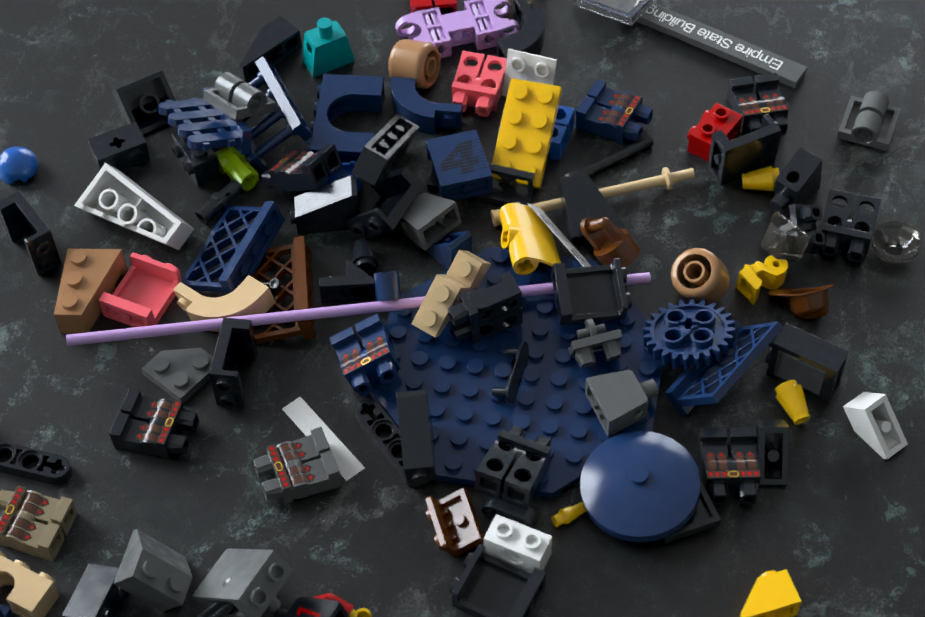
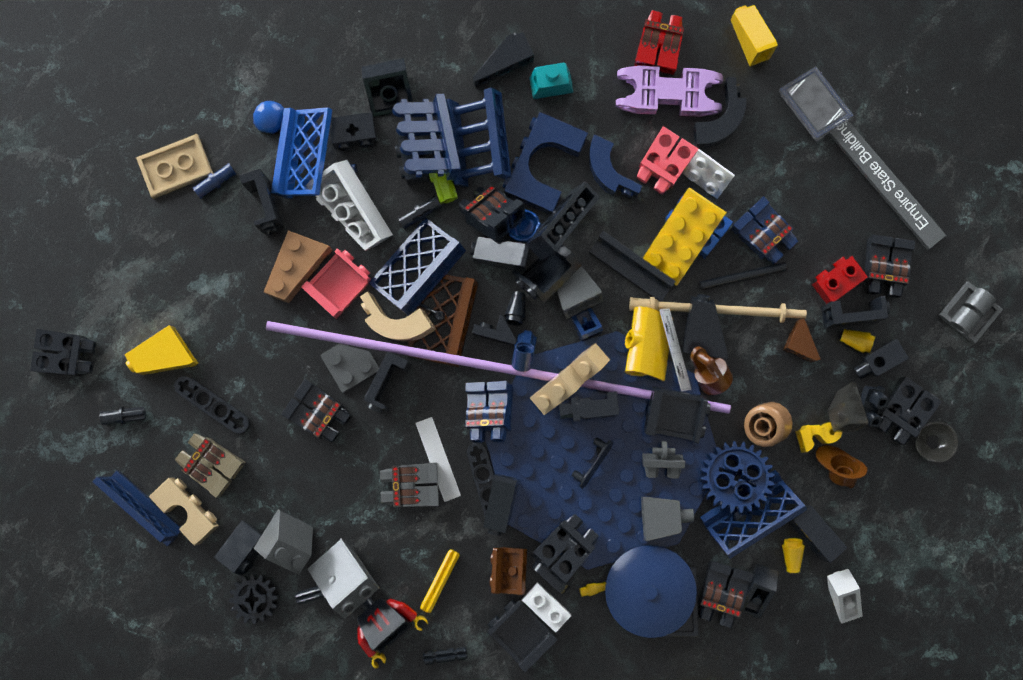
camera: 20 degrees right, 30 degrees up
(49, 179) = (291, 150): none -> blue fence
(238, 98) = (459, 128): dark grey plate -> none
(370, 565) = (439, 581): none -> yellow axle
(416, 61) = (618, 123): medium nougat head -> none
(460, 165) = (619, 247): dark blue panel -> none
(703, 199) = (801, 342): none -> reddish brown slope

